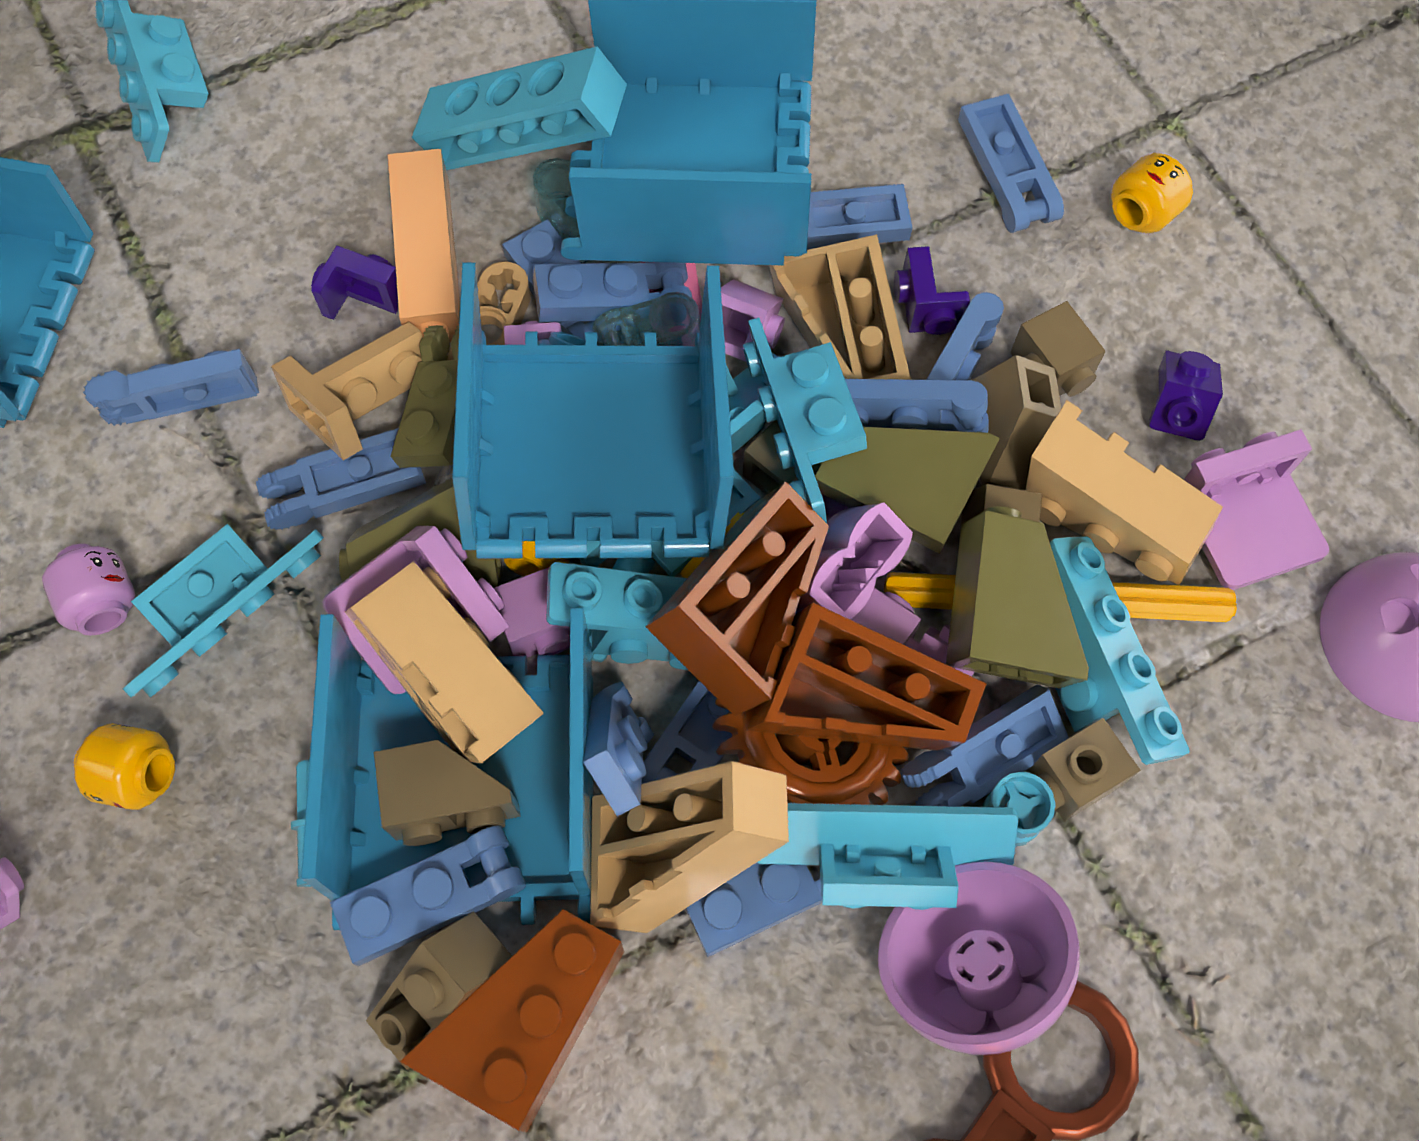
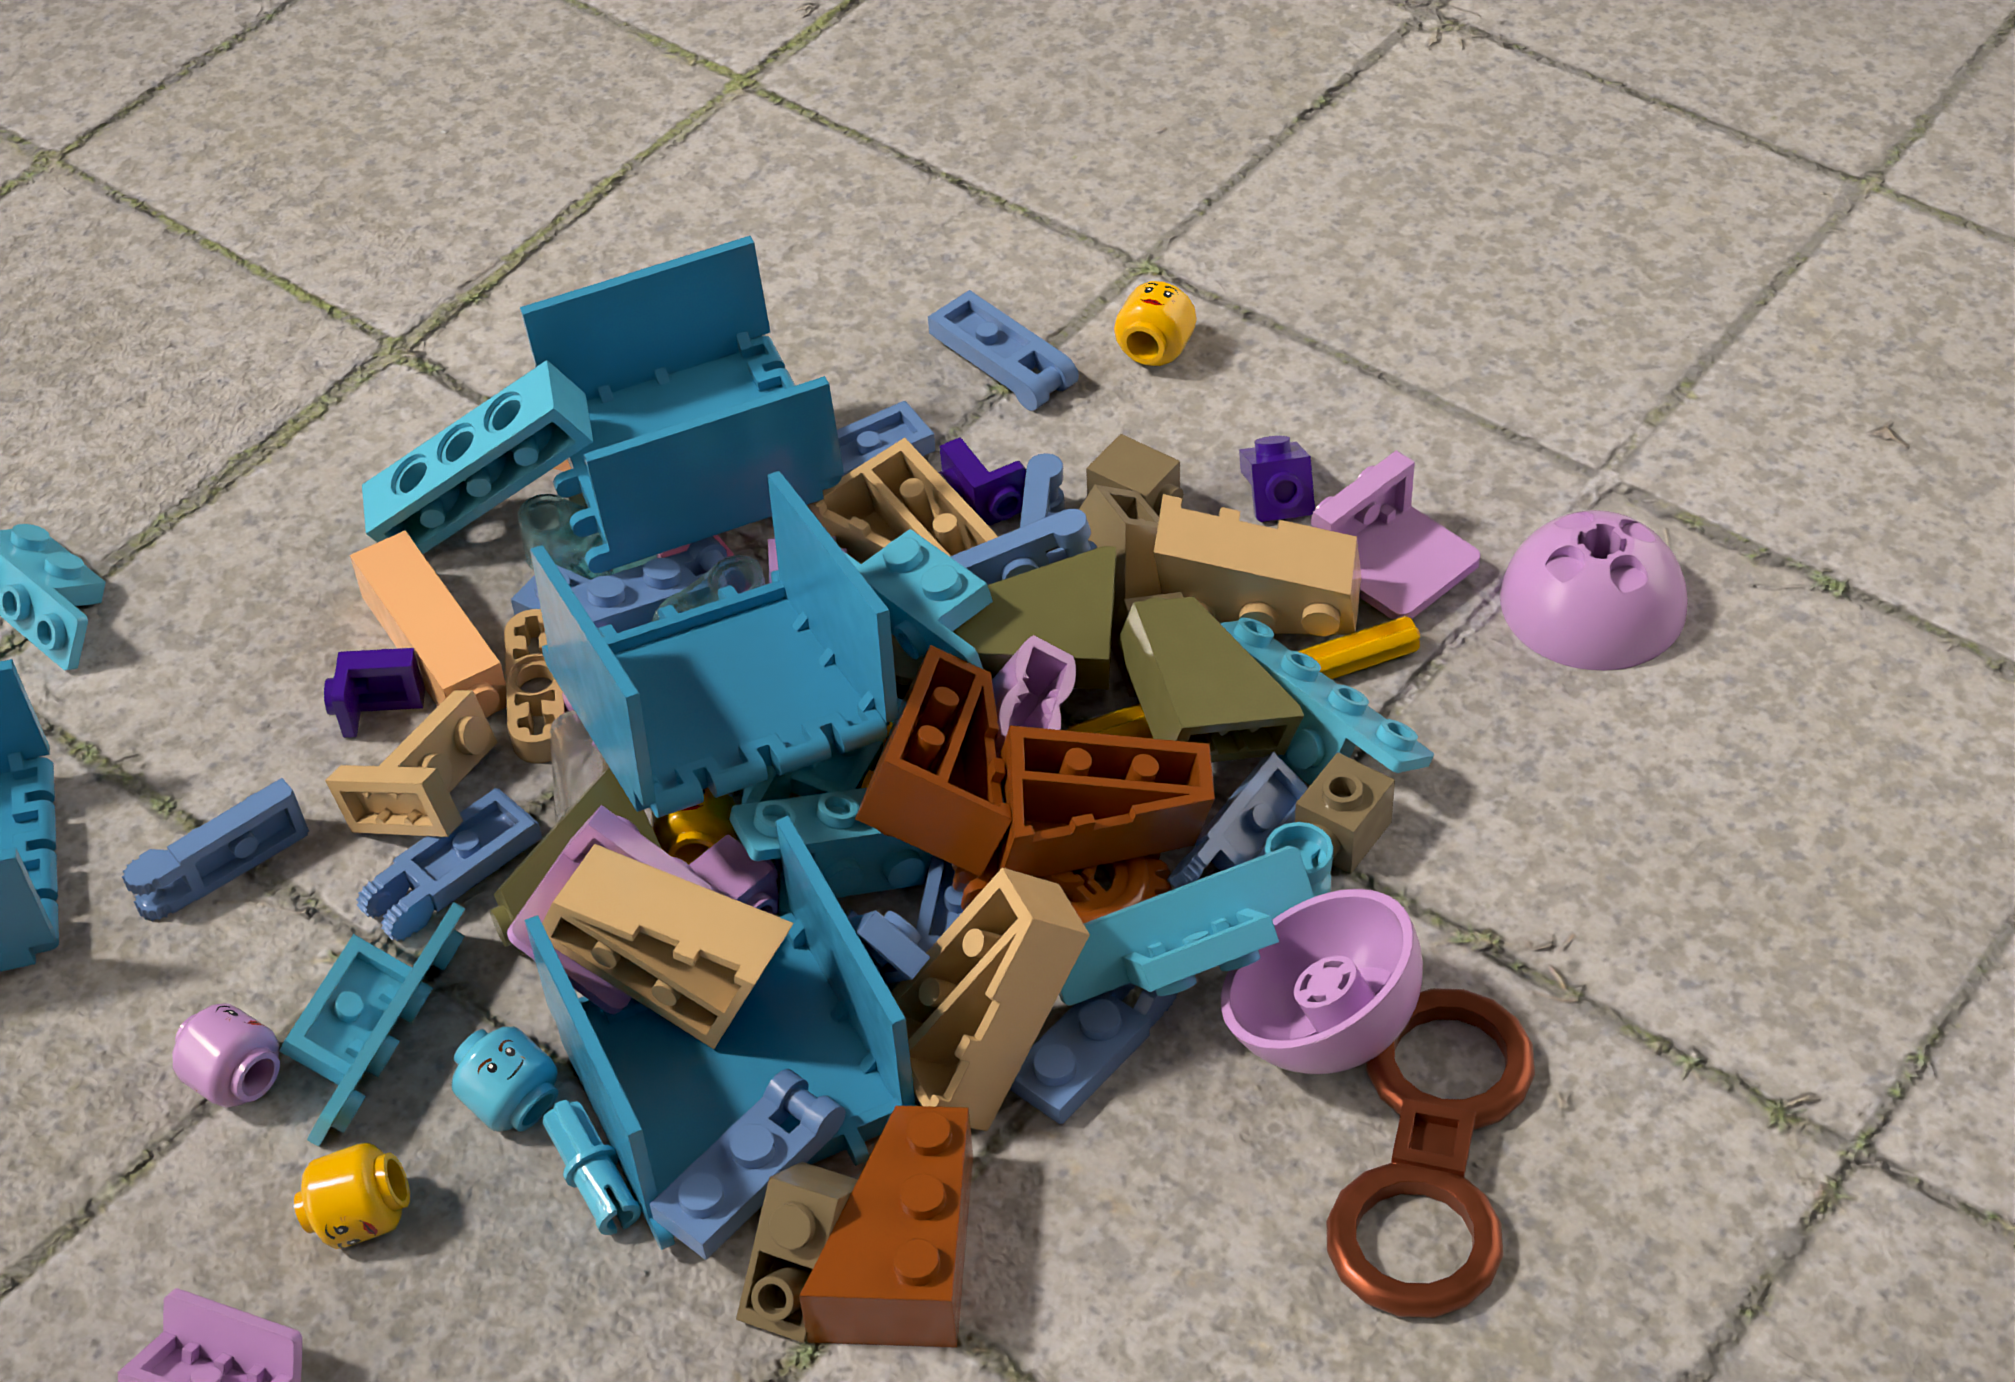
camera: 20 degrees left, 20 degrees down
(280, 710) = (504, 1078): none -> medium azure head
(429, 414) = (523, 746): olive hinge -> none
(435, 791) = (712, 1068): dark tan slope -> none

